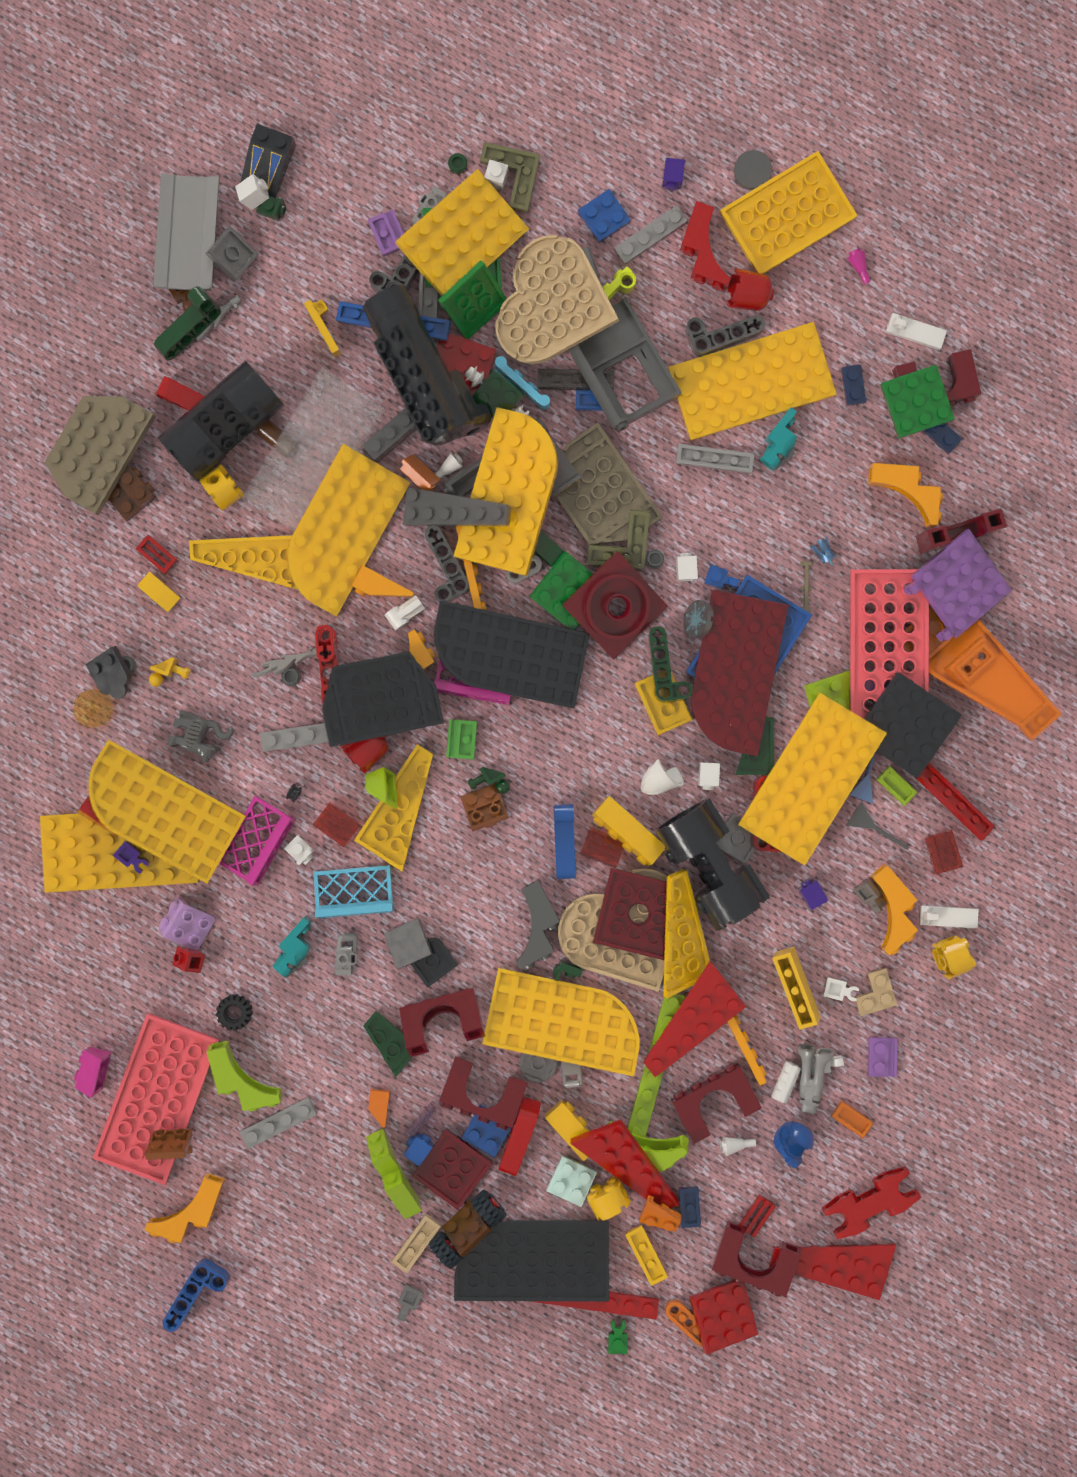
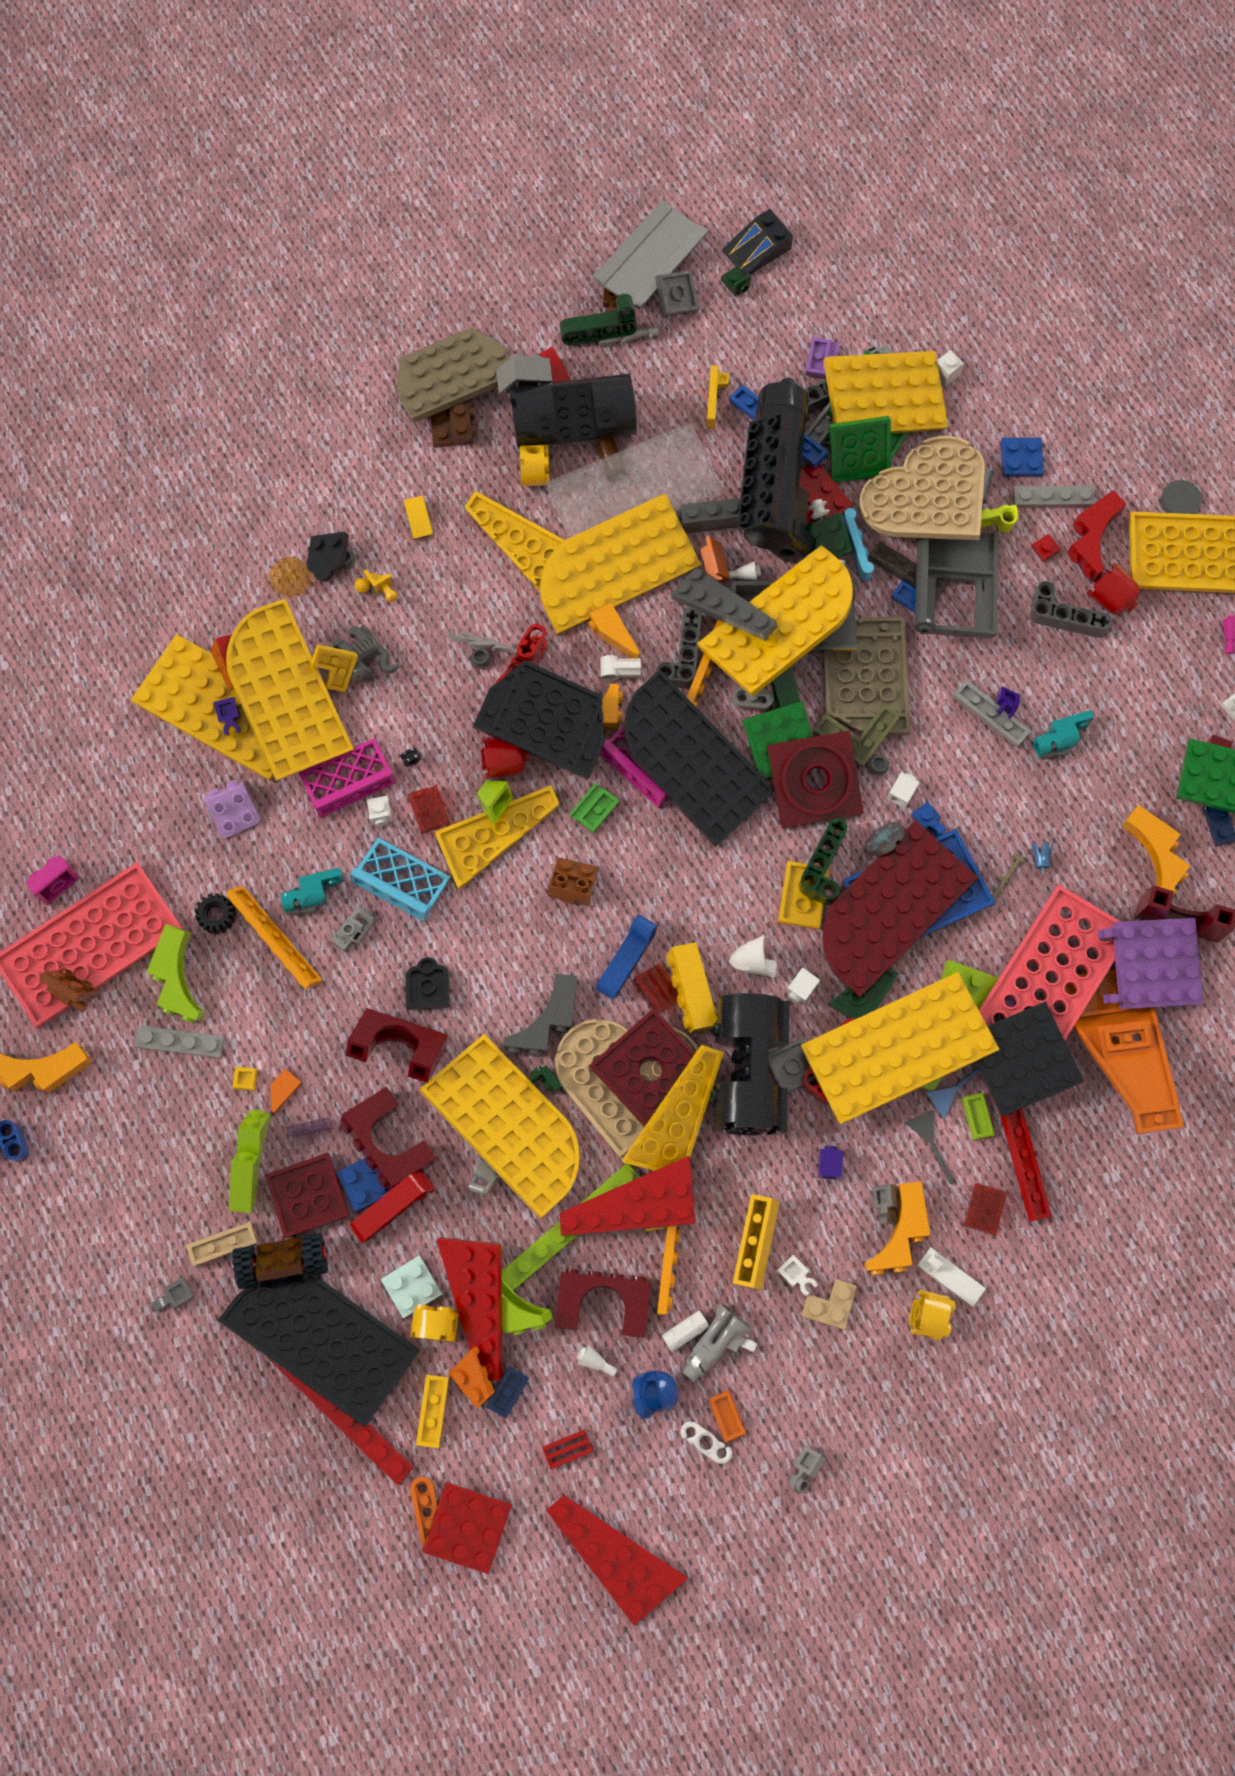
camera: 35 degrees right, 15 degrees down
(159, 417) = (524, 371): none -> light grey piece
(169, 565) = (443, 502): red tile -> none
(187, 760) = (338, 662): none -> yellow plate
(188, 959) = (210, 837): red brick -> none
(252, 191) = (728, 258): white brick -> none
(291, 1000) = (274, 937): none -> light orange plate
(293, 737) = (445, 712): light grey plate -> none
(346, 1116) = (245, 1078): none -> yellow tile
(389, 1041) = (334, 1034): dark green wing -> none
(408, 943) = (417, 956): flat silver tile -> none
(418, 1148) = (290, 1152): blue brick -> none
(457, 163) = (920, 341): dark green tile -> none
(491, 777) = (598, 858): dark green piece -> none
(523, 163) = (977, 377): olive plate -> none
(529, 1066) = (454, 1155): flat silver tile -> none
(567, 1123) = (446, 1224): yellow brick -> none
(618, 1340) = (345, 1481): green plate -> none
(671, 285) = (1045, 548): none -> red plate
(673, 173) = (1106, 458): dark purple brick -> none
(722, 440) = (1008, 701): none -> dark purple plate
(752, 381) = (1069, 670): yellow plate -> none
(773, 1279) = (509, 1474): dark red arch -> none
(841, 1142) = (699, 1433): none -> white piece
(853, 385) = (1162, 731): dark blue plate -> none
(880, 1198) = (709, 1516): red piece -> none
(882, 1056) = (797, 1373): medium lavender plate -> none
(931, 1114) = (809, 1464): none -> light grey plate

